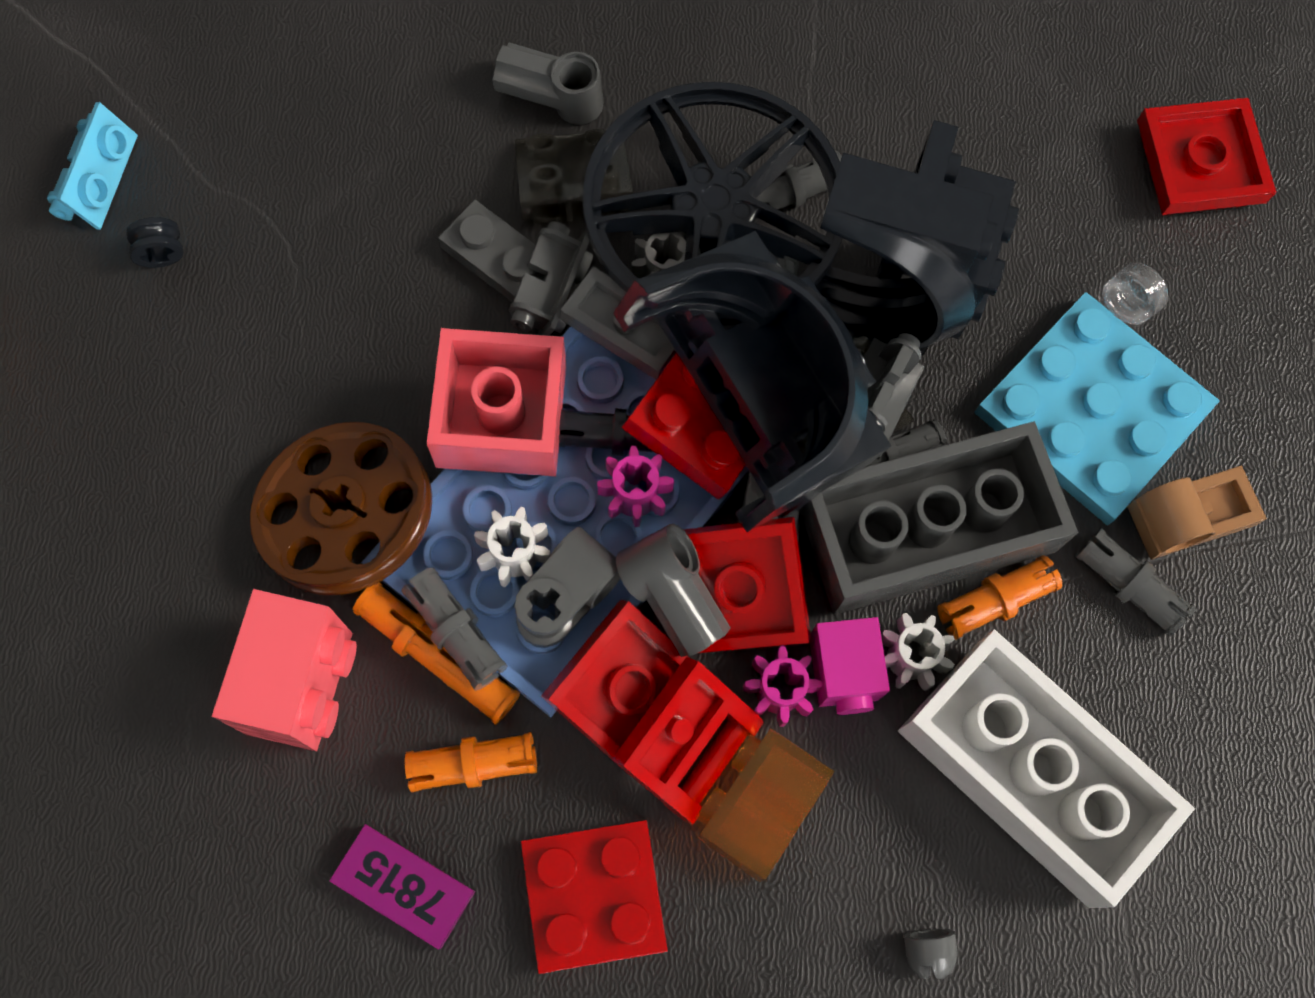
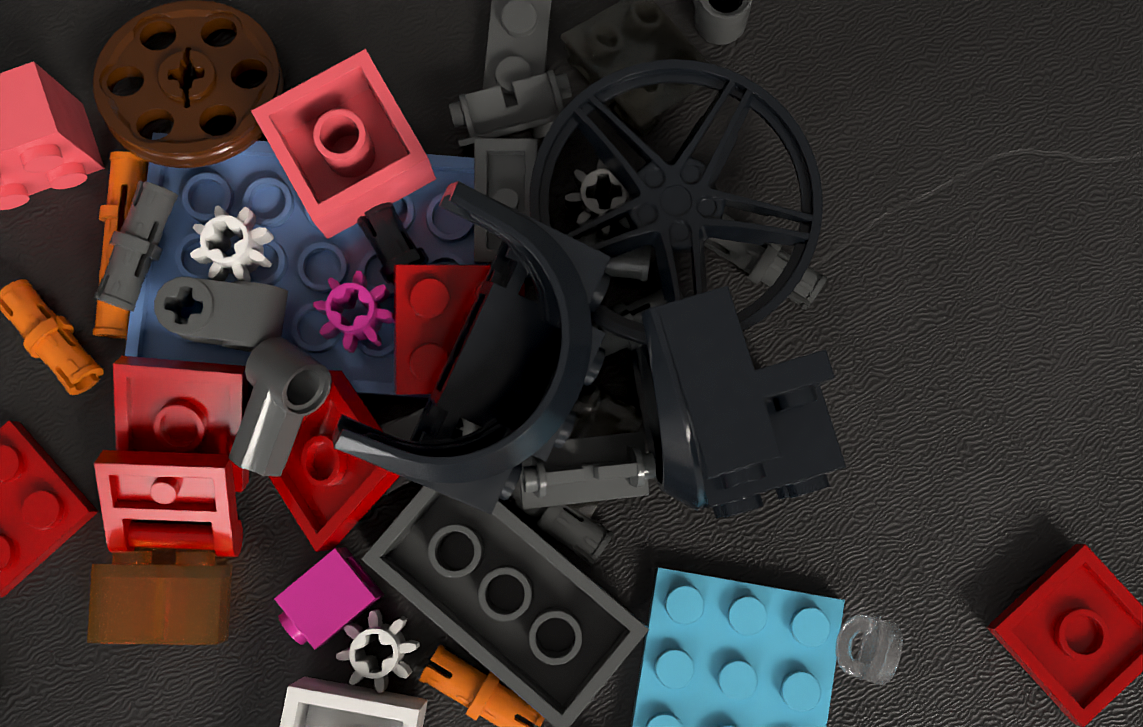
camera: 60 degrees right, 10 degrees up
(794, 674) = (256, 547): dark pink gear -> none

